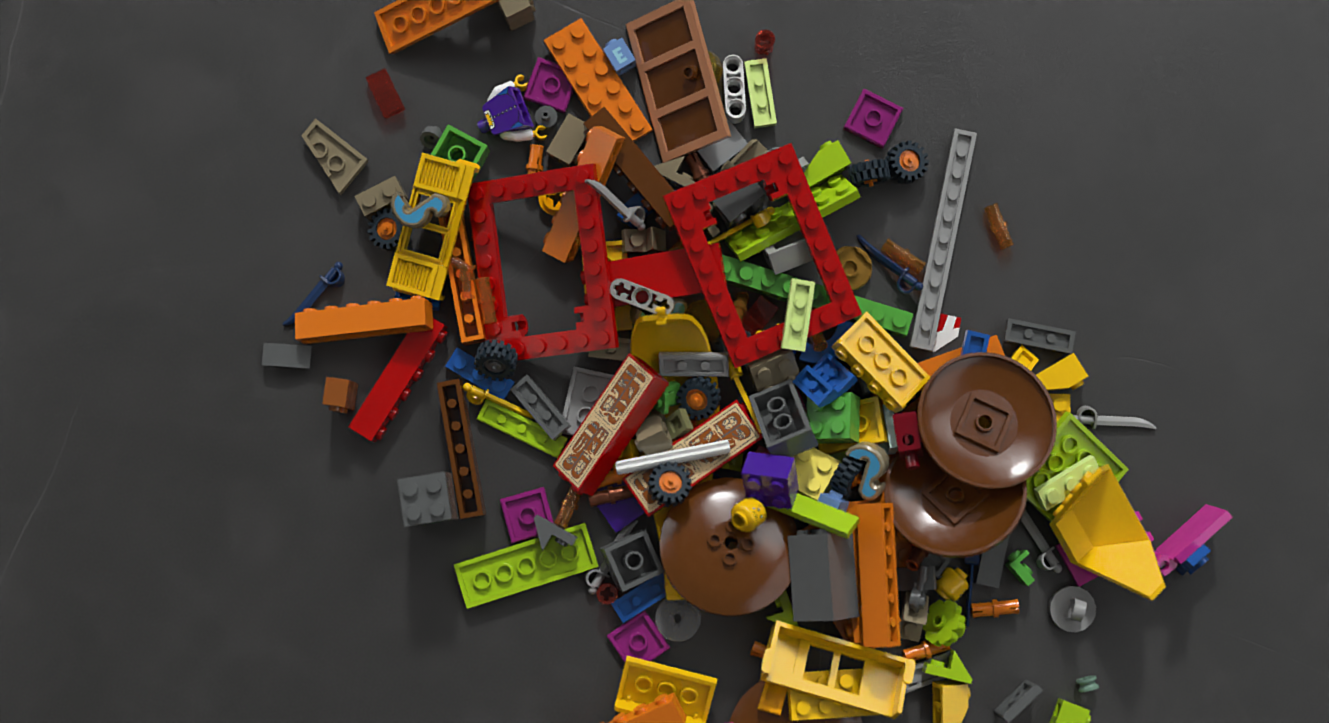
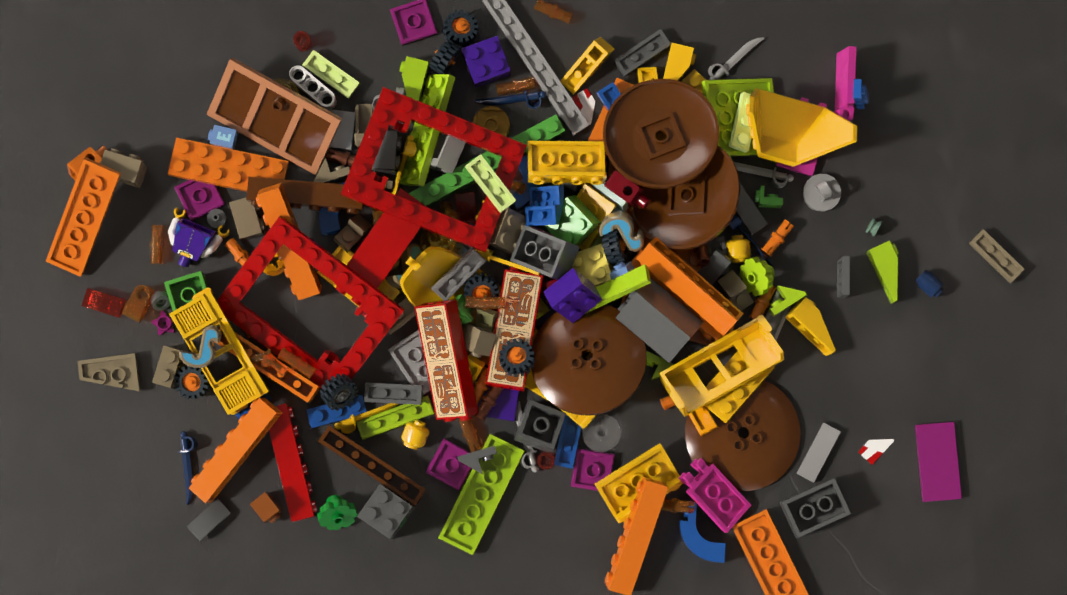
camera: 55 degrees left, 0 degrees up
(392, 457) = (336, 513): none -> green plant
(409, 122) = (136, 306): none -> clear orange piece
(412, 155) = (159, 323): none -> magenta plate
(485, 81) = (156, 244): none -> clear orange pin
(523, 459) = (415, 434): none -> yellow head
(627, 213) = (331, 223): light grey sword -> none
(628, 285) = (372, 267): light grey beam -> none
(678, 456) = (505, 336): white axle -> none
(691, 410) = (485, 302): none -> clear orange pin
(748, 514) = (580, 328): yellow head -> none
(899, 211) = (486, 61): none -> dark purple brick
(917, 599) = (726, 277): dark grey plate -> none
(982, 299) = (587, 65): none -> yellow slope

